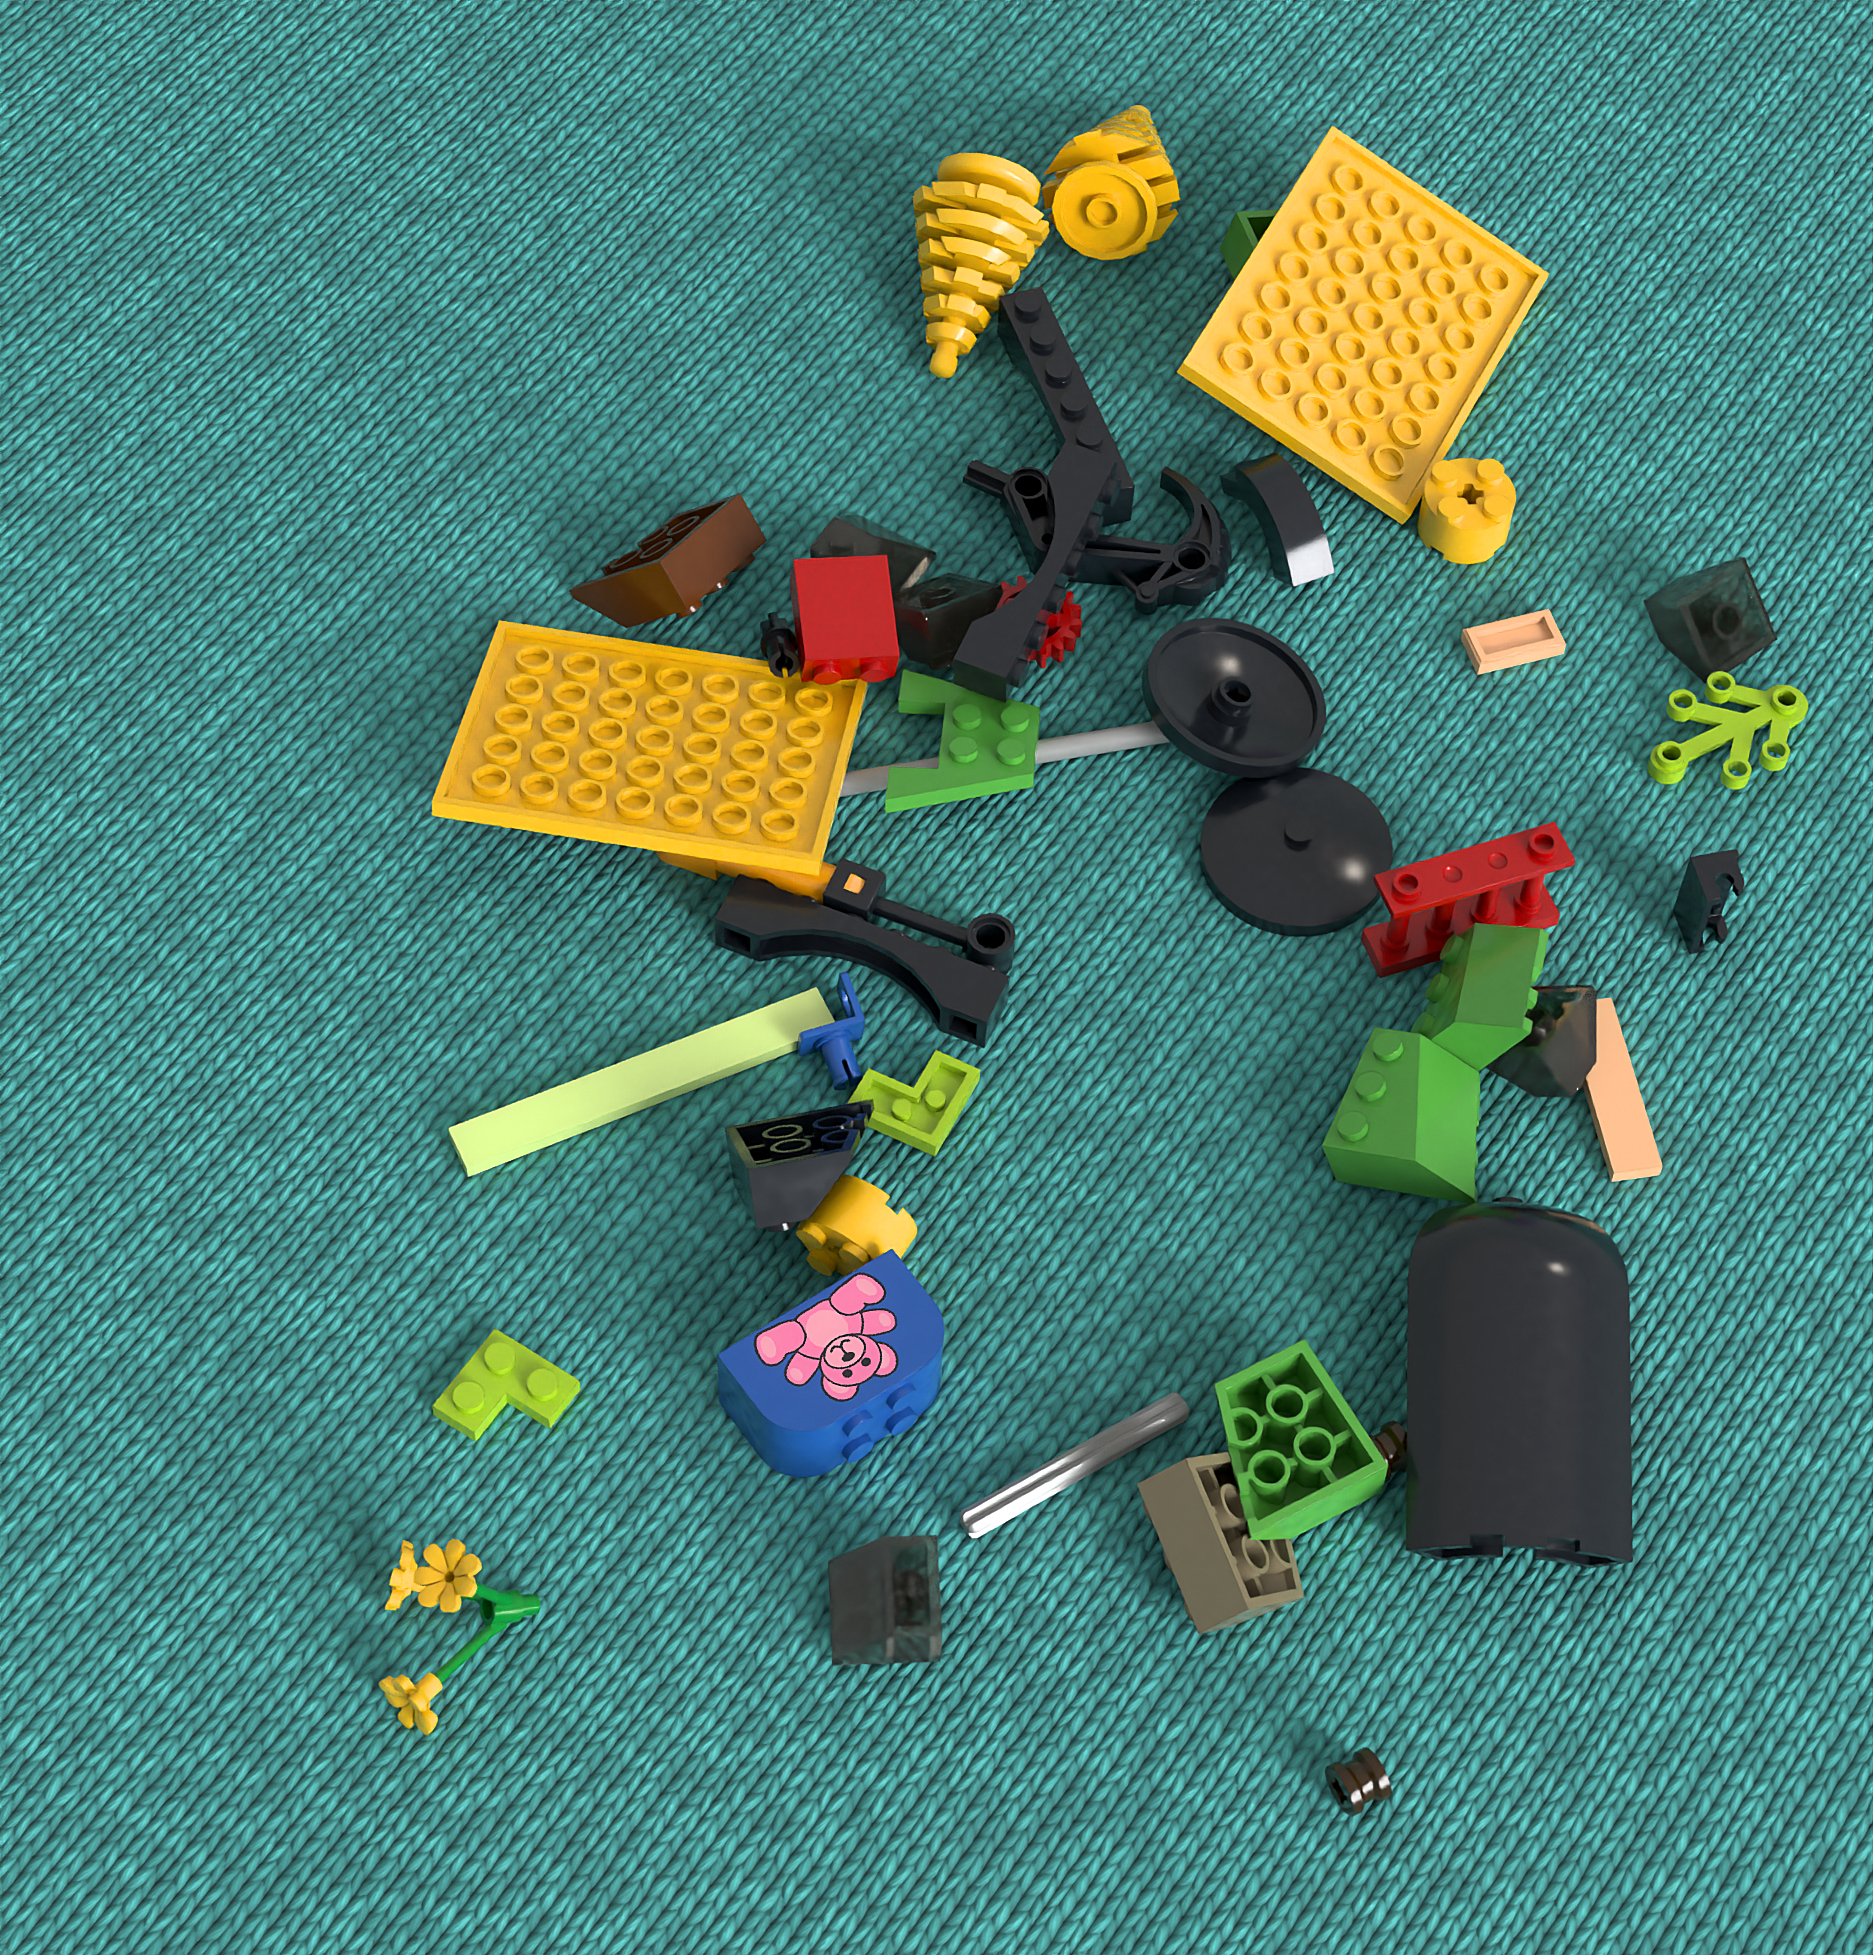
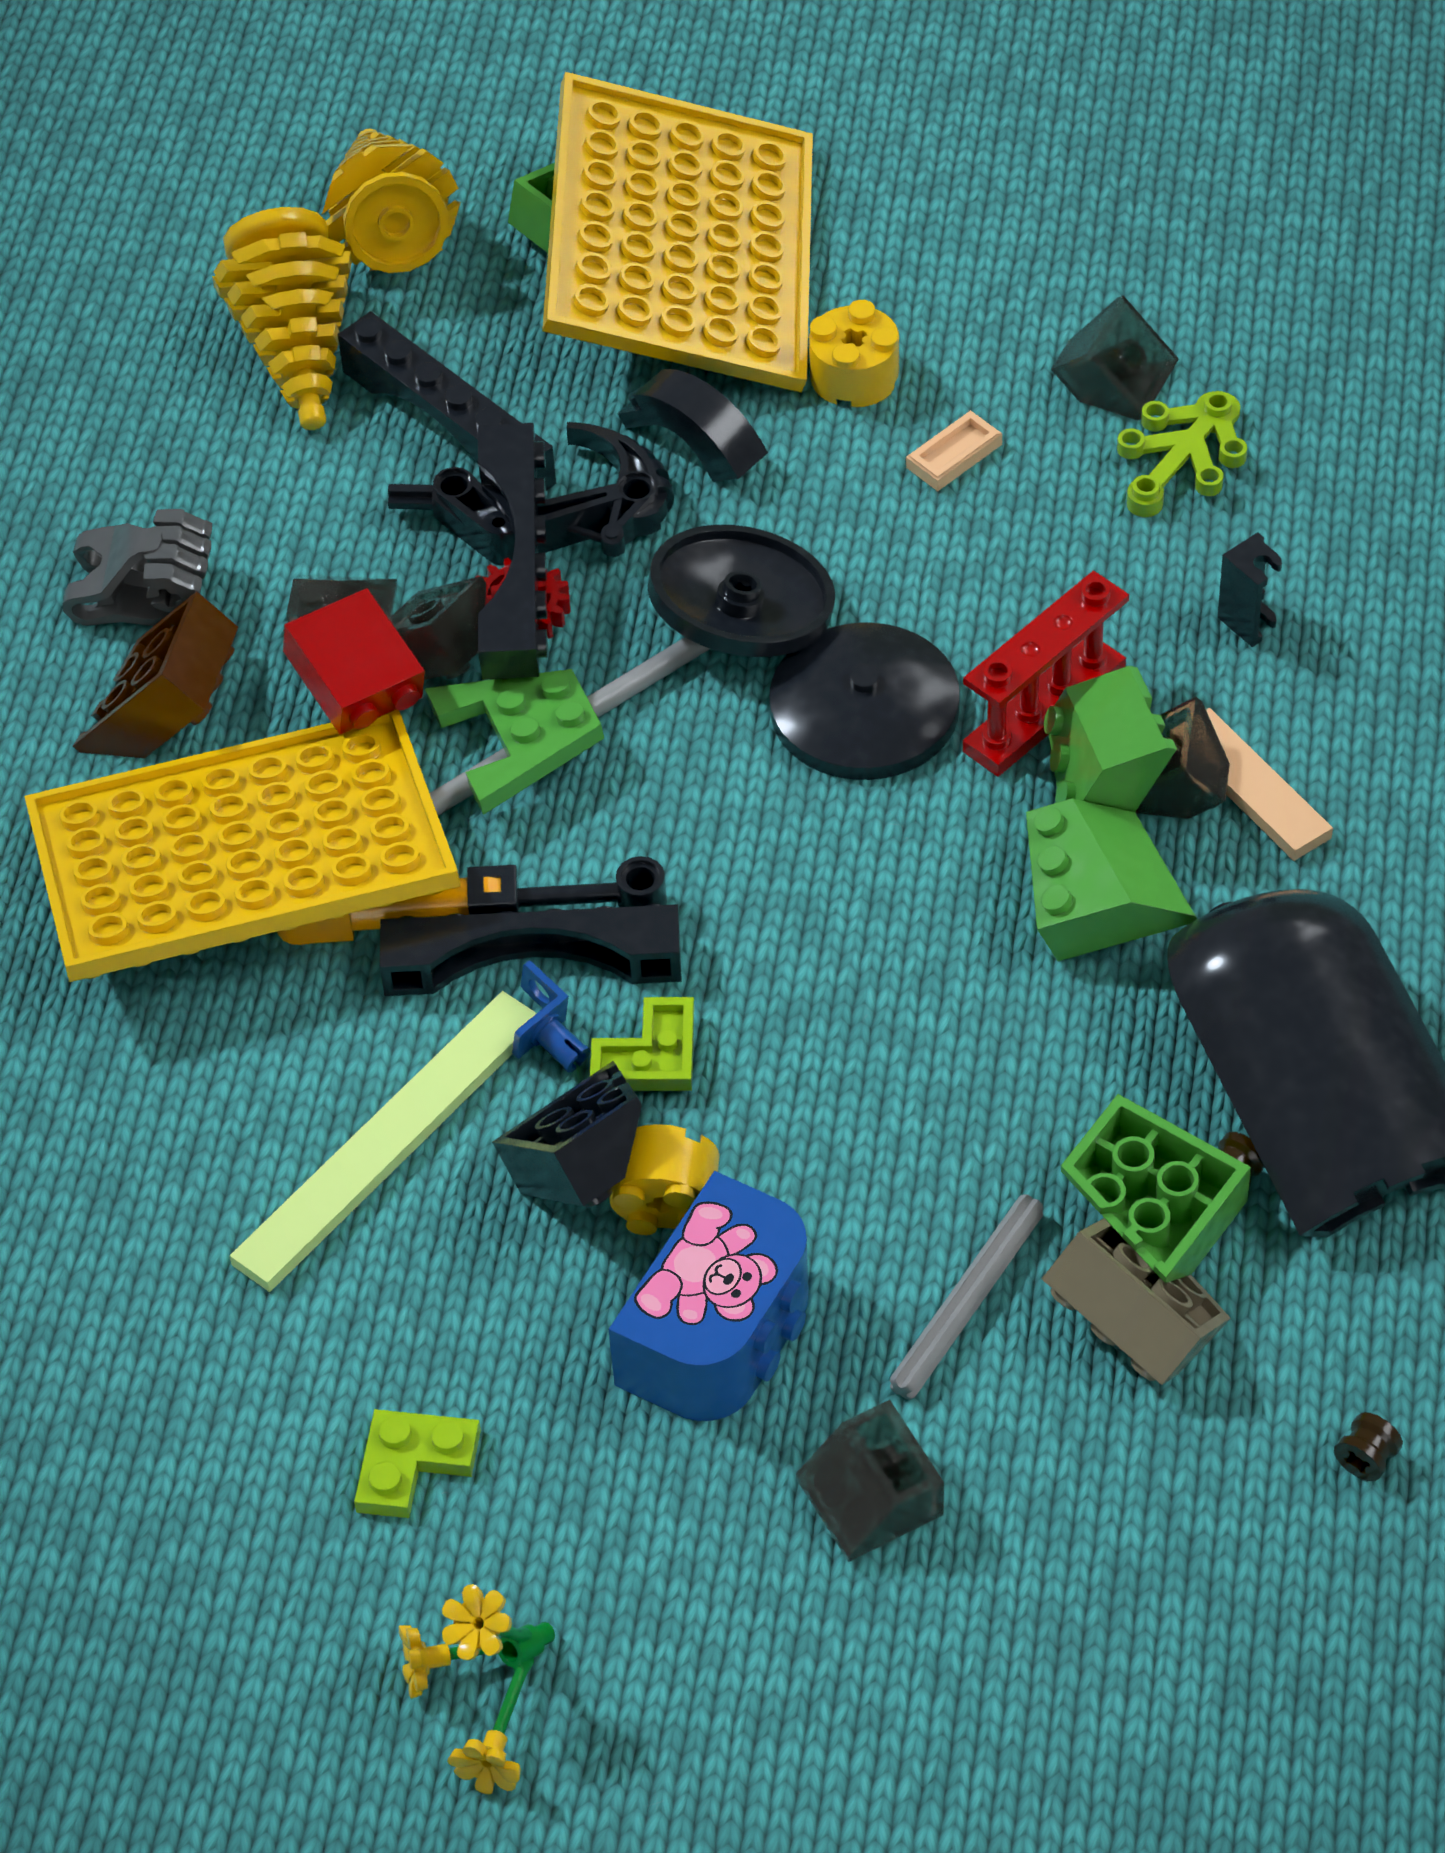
camera: 20 degrees left, 5 degrees down
(707, 451) = (139, 571): none -> dark grey piece
(779, 645) = (302, 711): black axle -> none

